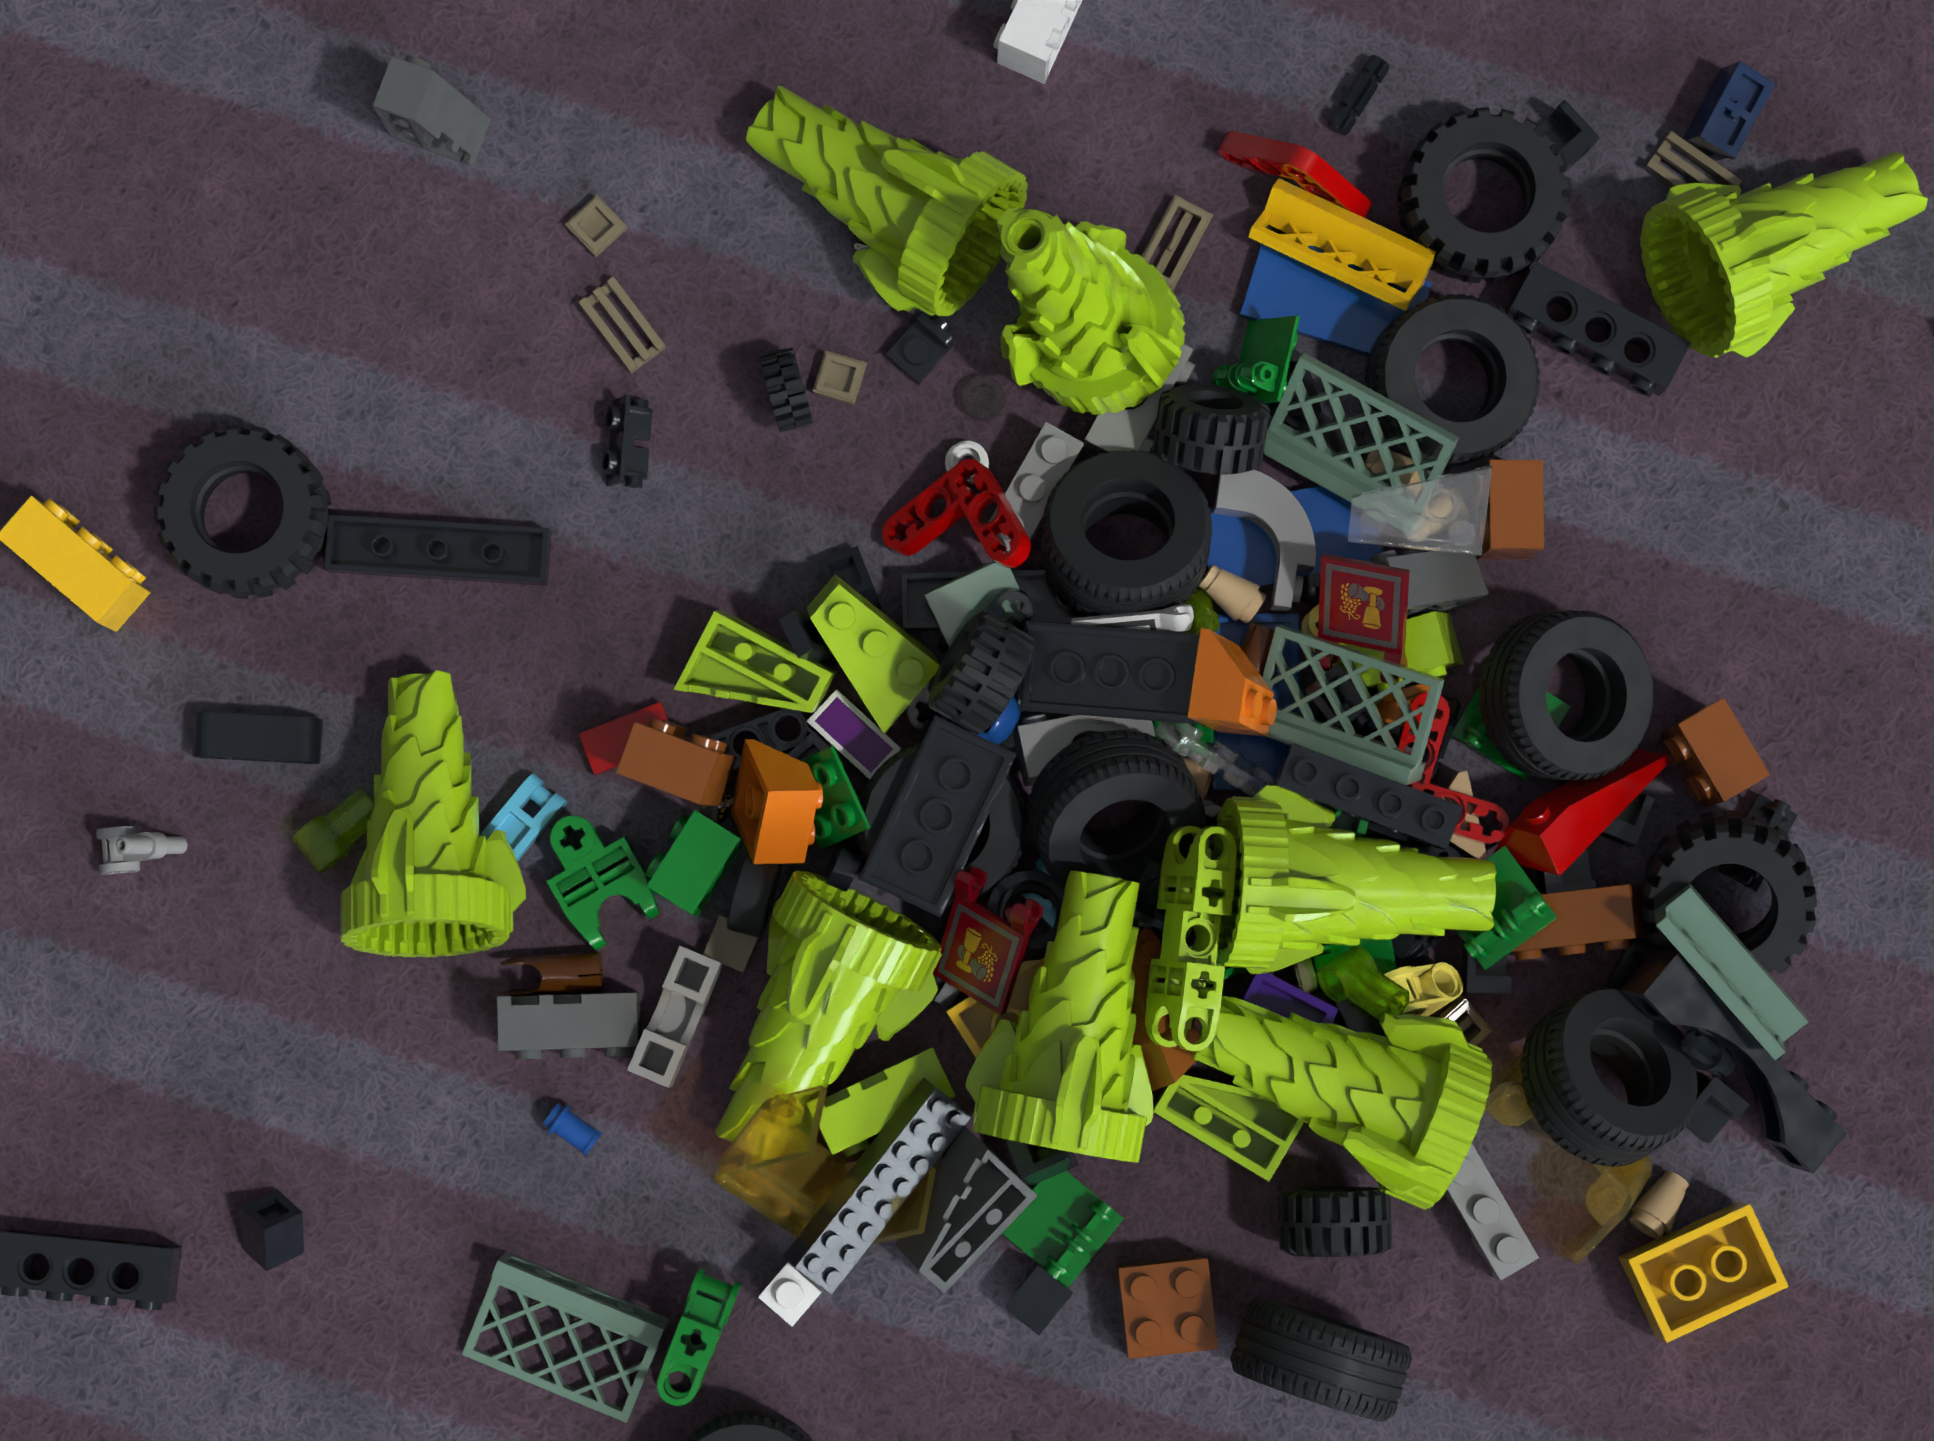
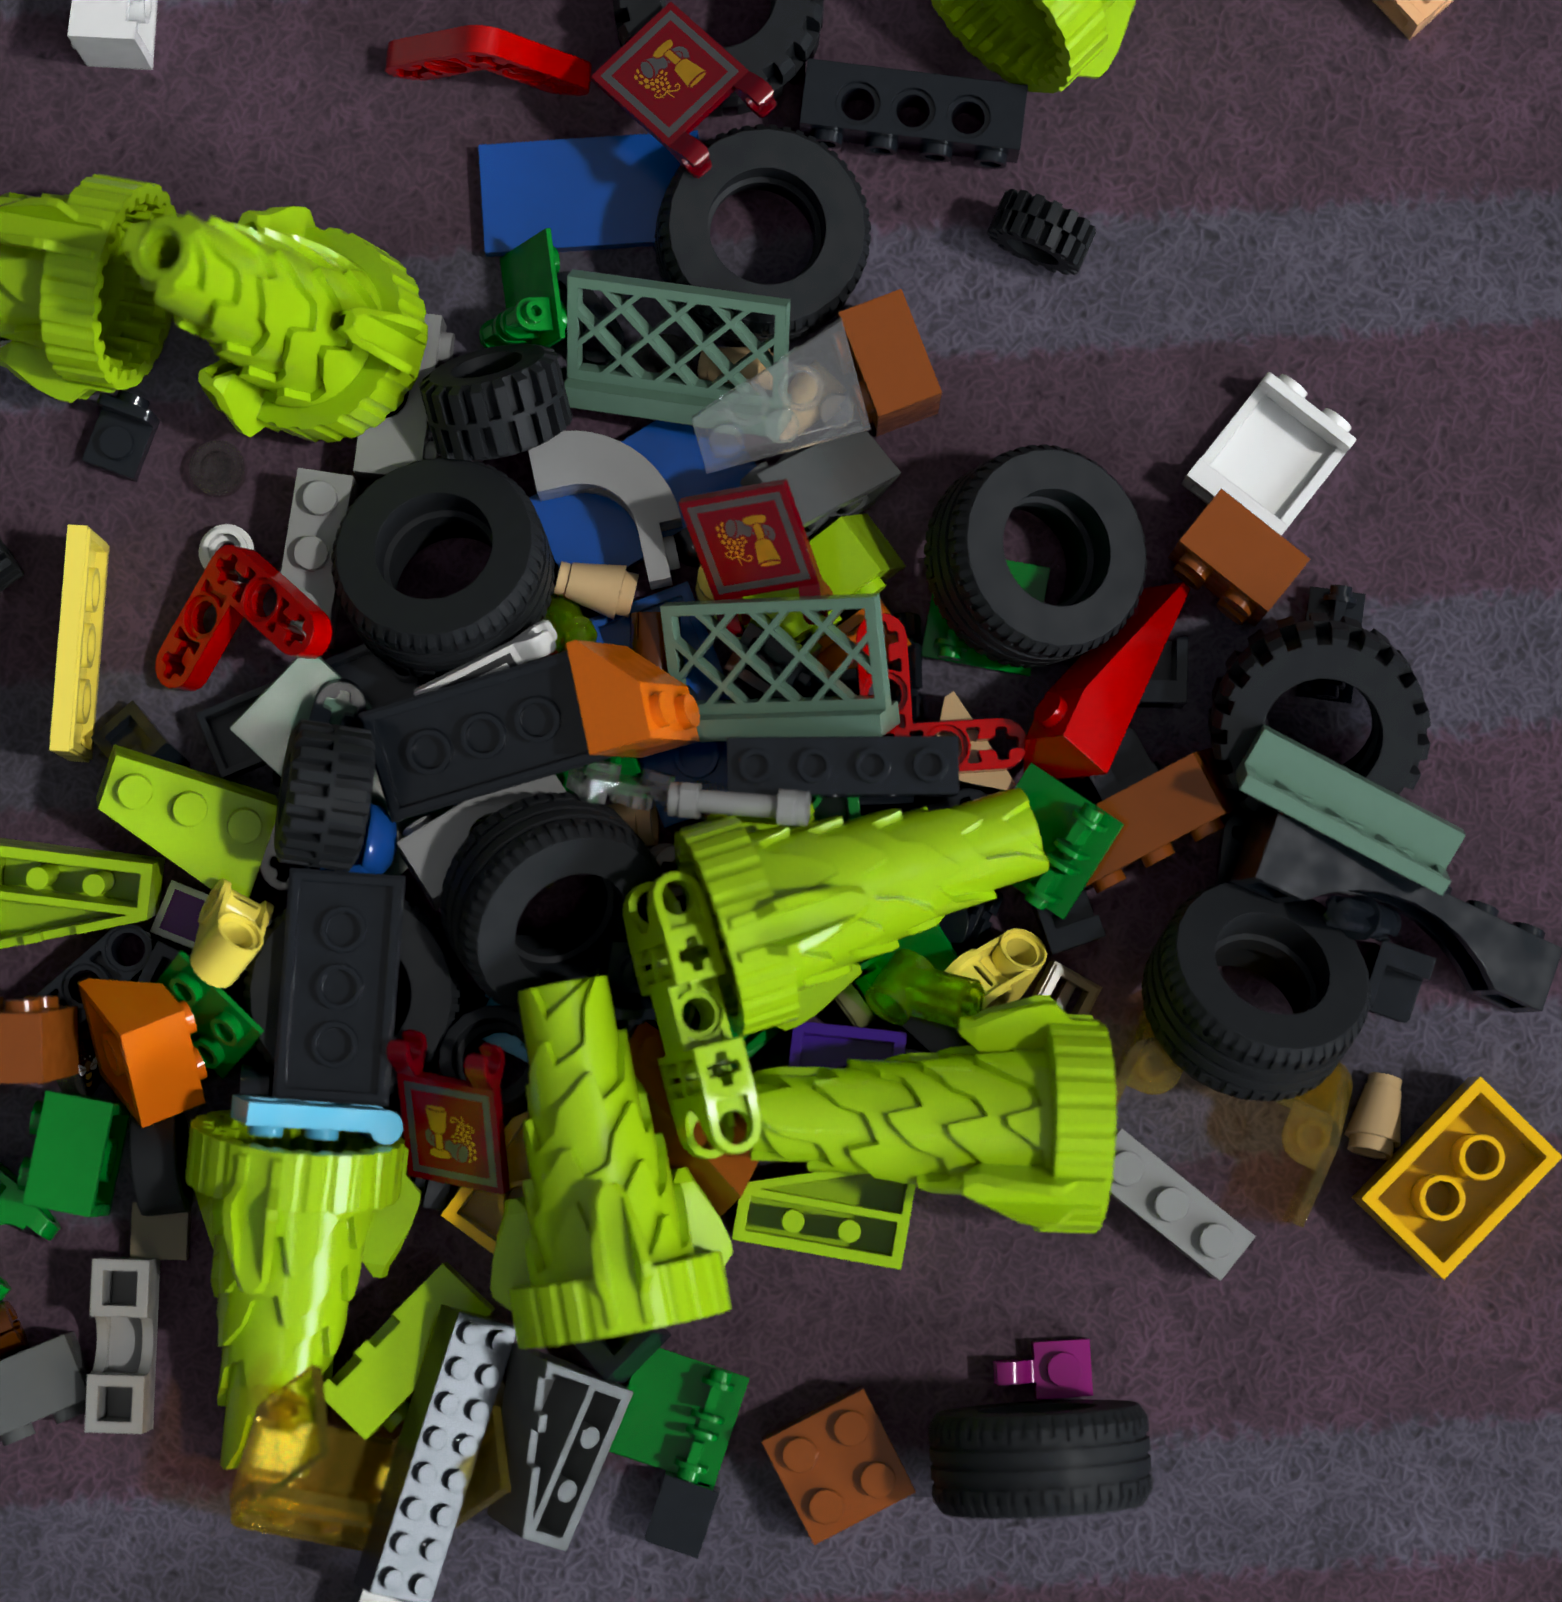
camera: 15 degrees left, 0 degrees up
(571, 1128) = (50, 1525): blue pin -> none
(806, 639) = (104, 835): black tile -> none
(836, 490) = (79, 644): none -> light yellow tile
(839, 378) = (38, 509): dark tan tile -> none
(870, 746) = (228, 934): none -> light yellow piece
(887, 908) = (319, 1119): none -> medium azure plate
(1191, 210) = (382, 153): dark tan tile -> none
(1248, 779) = (689, 801): none -> light grey bar
(1334, 1221) = (997, 1287): black tyre -> none
(1346, 241) = (556, 111): yellow fence -> none
(1350, 1299) = (1056, 1369): none -> magenta plate
(1434, 241) = (674, 79): none -> dark red flag
(1659, 455) = (1041, 231): none -> black tyre
(1769, 683) = (1273, 453): none -> white panel

